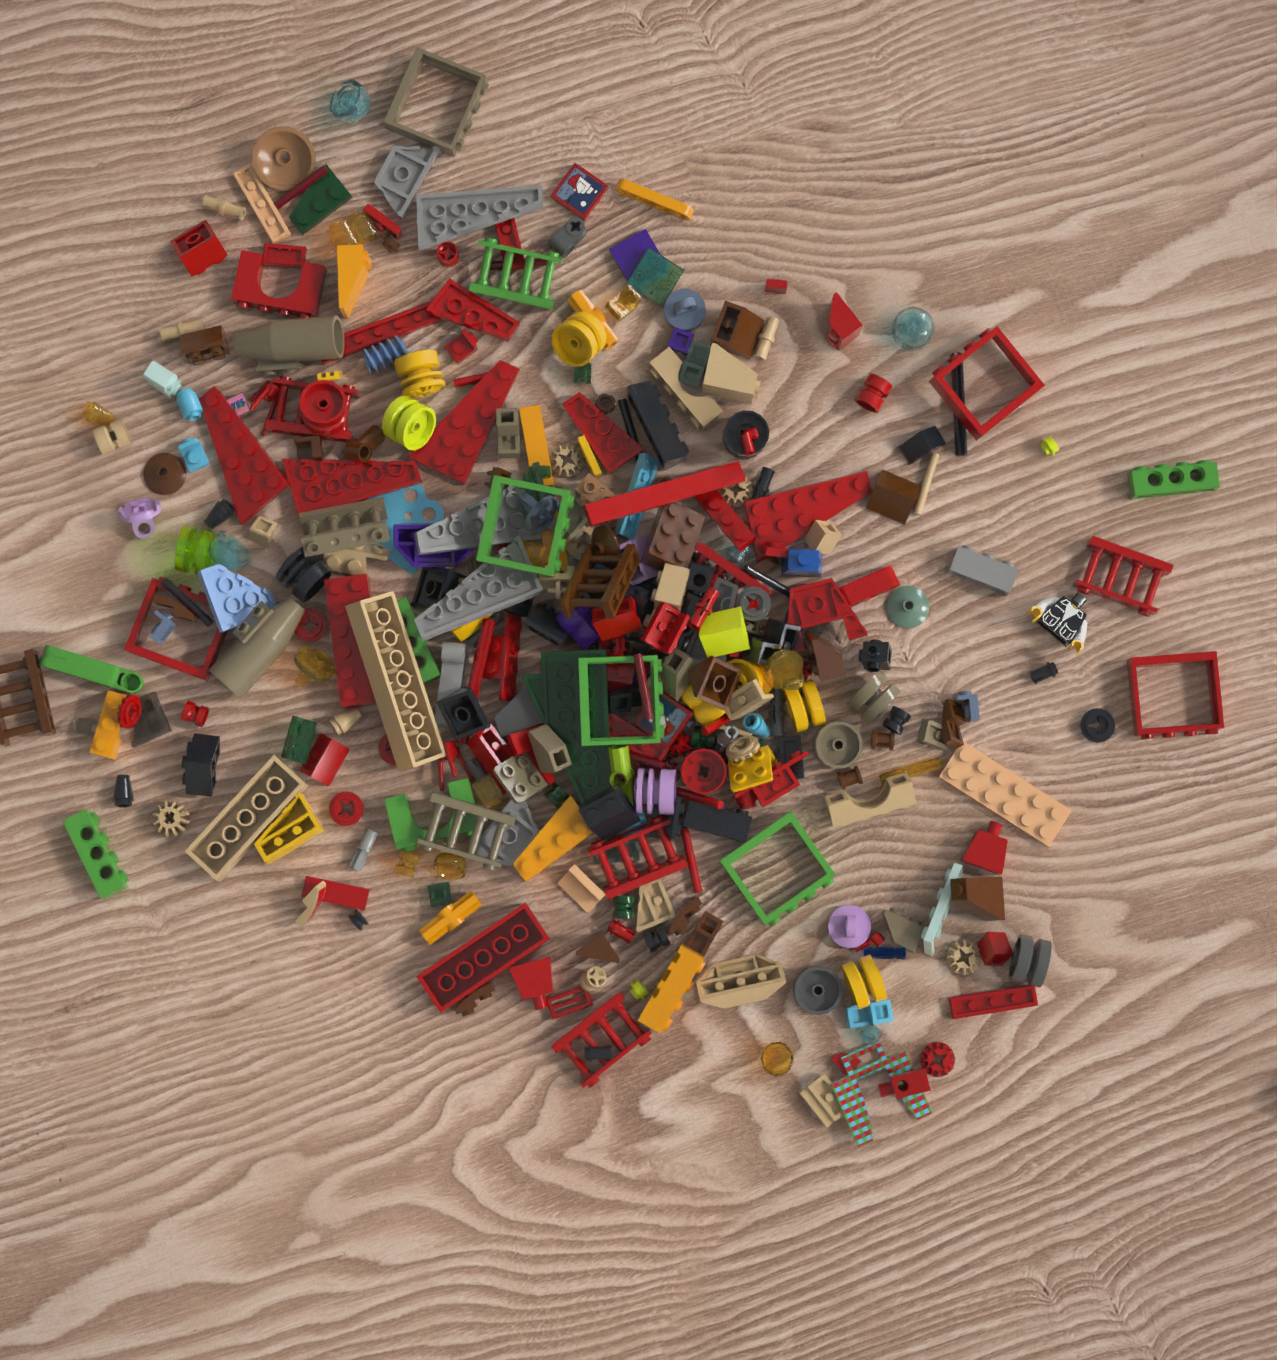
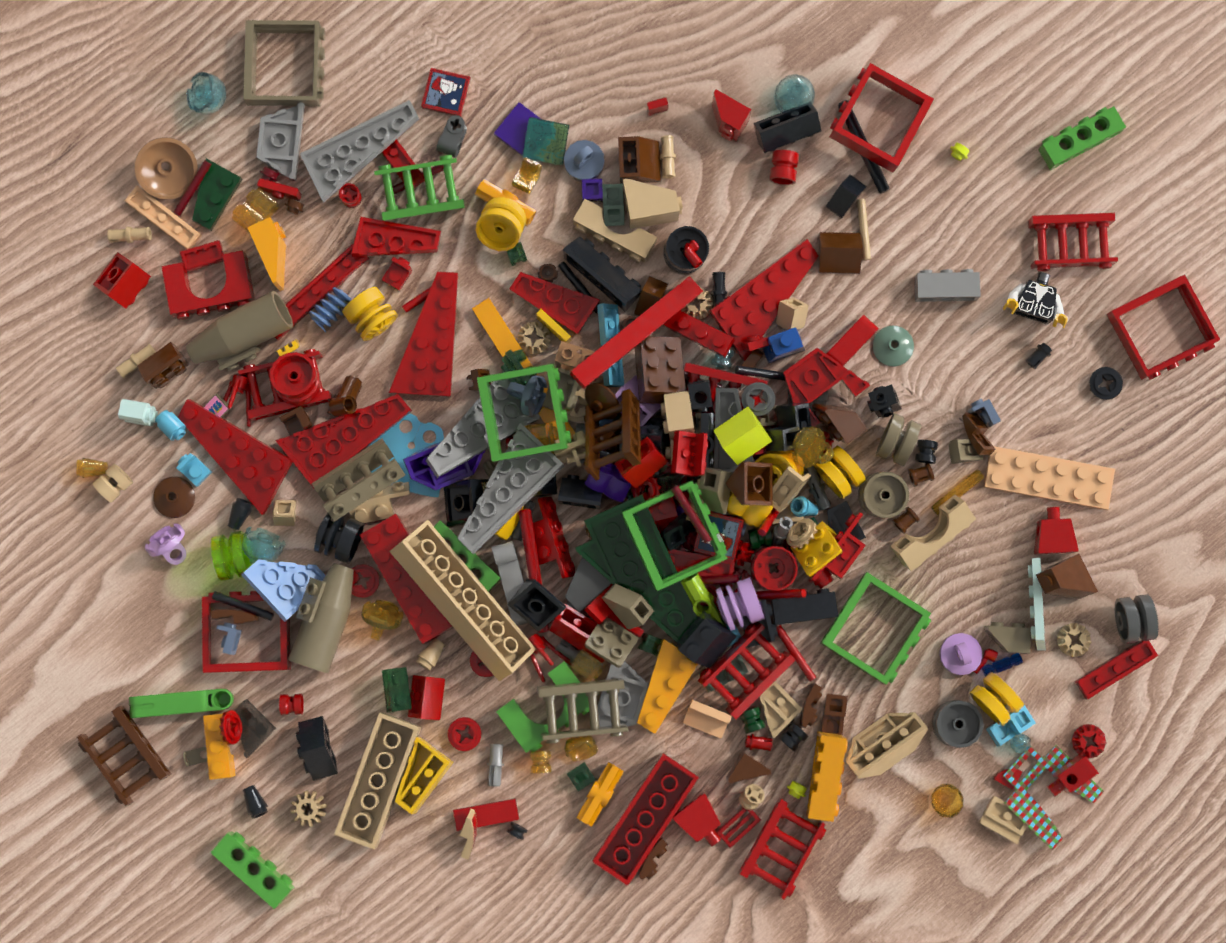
camera: 20 degrees left, 0 degrees up
(379, 203) = (269, 174): none -> dark red plate
(409, 423) = (378, 361): neon yellow wheel -> none
(508, 433) = (471, 334): dark tan brick -> none
(597, 1052) = (784, 862): black pin -> none
(635, 712) = (690, 543): none -> dark red plate
(654, 199) = (516, 72): light orange beam -> none
(695, 462) = (650, 294): none -> reddish brown slope
(710, 598) = (717, 408): red pin -> none
(892, 356) = (787, 127): none -> black brick
(995, 948) = (1099, 620): red panel -> none

